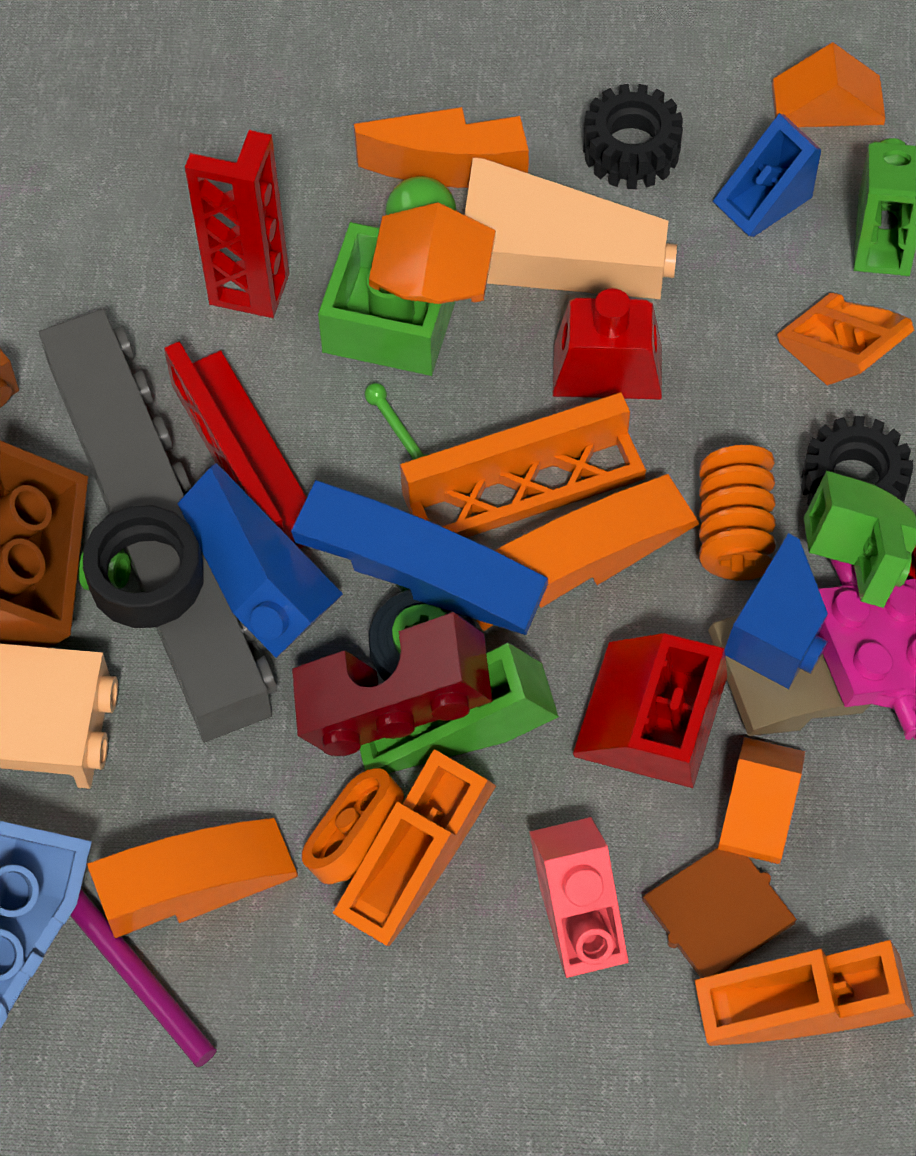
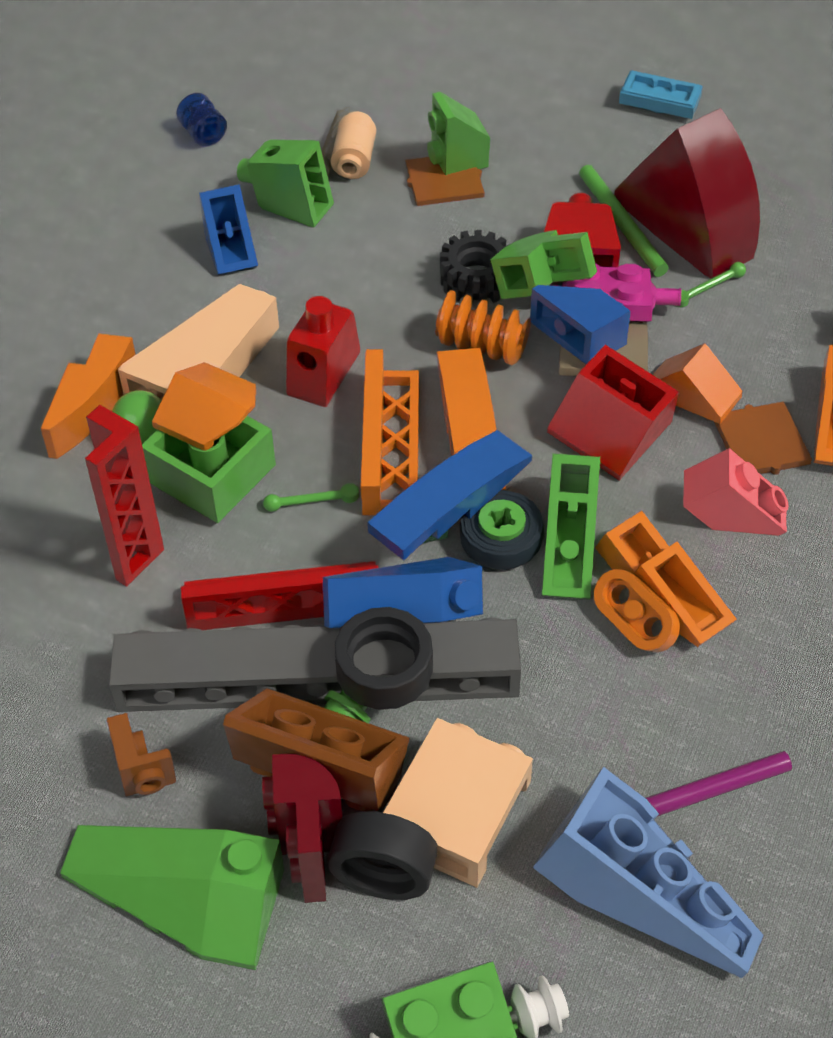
camera: 70 degrees left, 10 degrees down
(190, 873) = (641, 727): orange slope -> none
(437, 678) = (544, 582): dark red arch -> none
(639, 112) = (145, 308): black tyre -> none
(829, 91) = (170, 191): orange slope -> none
(843, 337) = (374, 239): orange slope -> none

